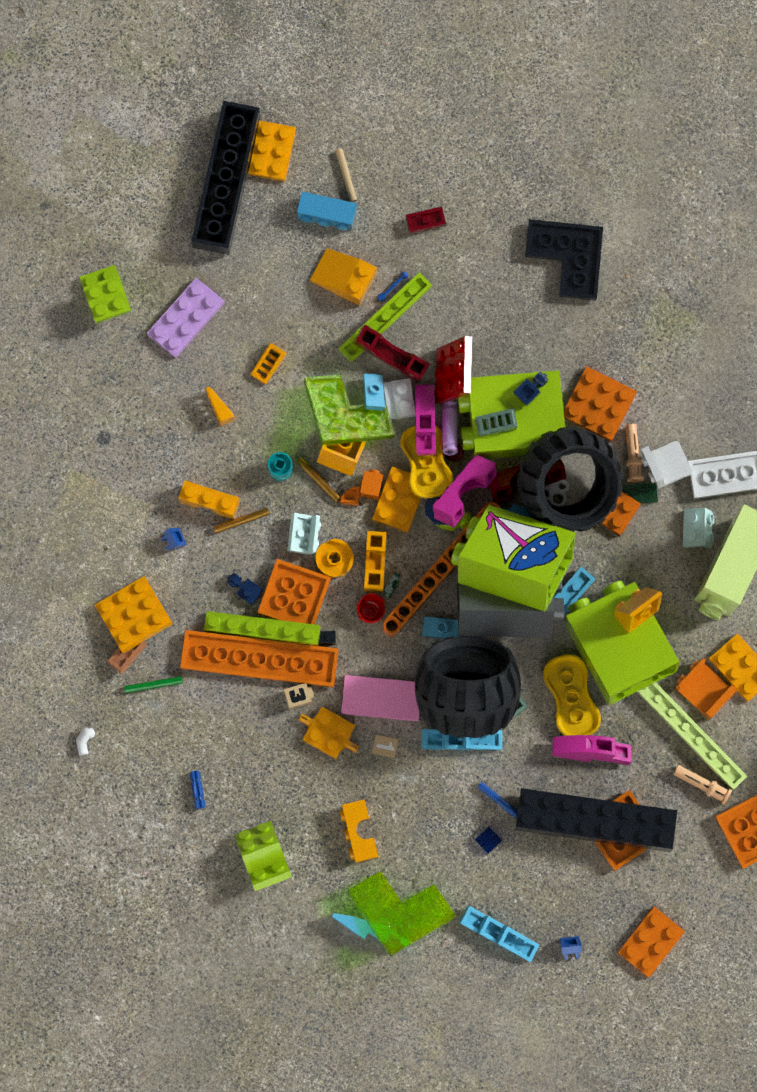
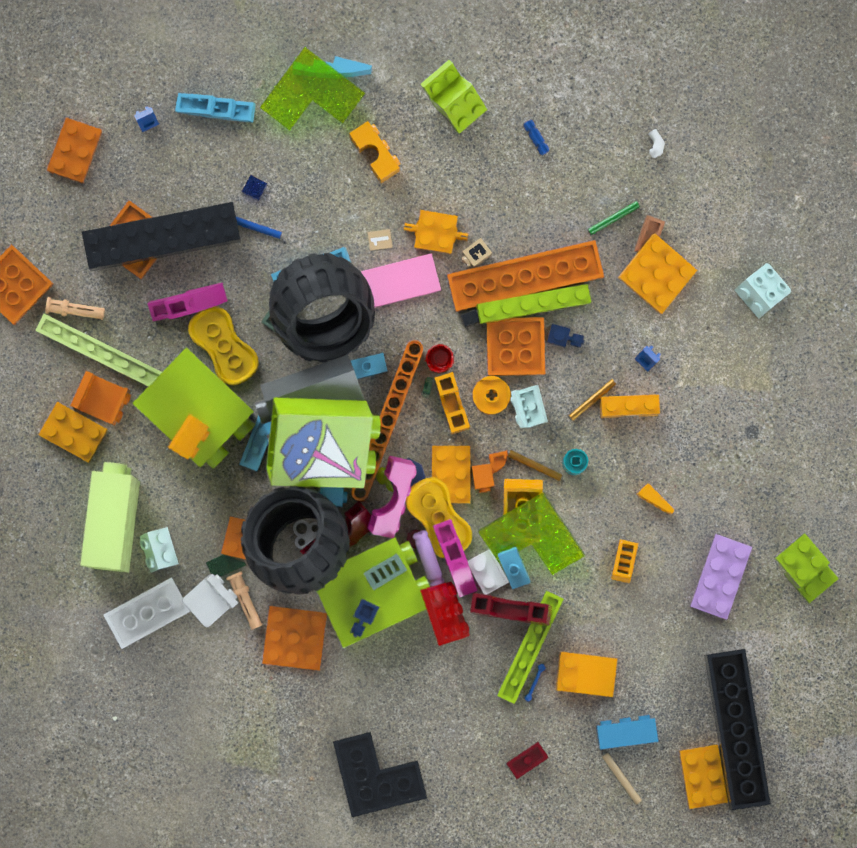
camera: 160 degrees right, 5 degrees up
(39, 562) = (763, 290): none -> light aqua bracket

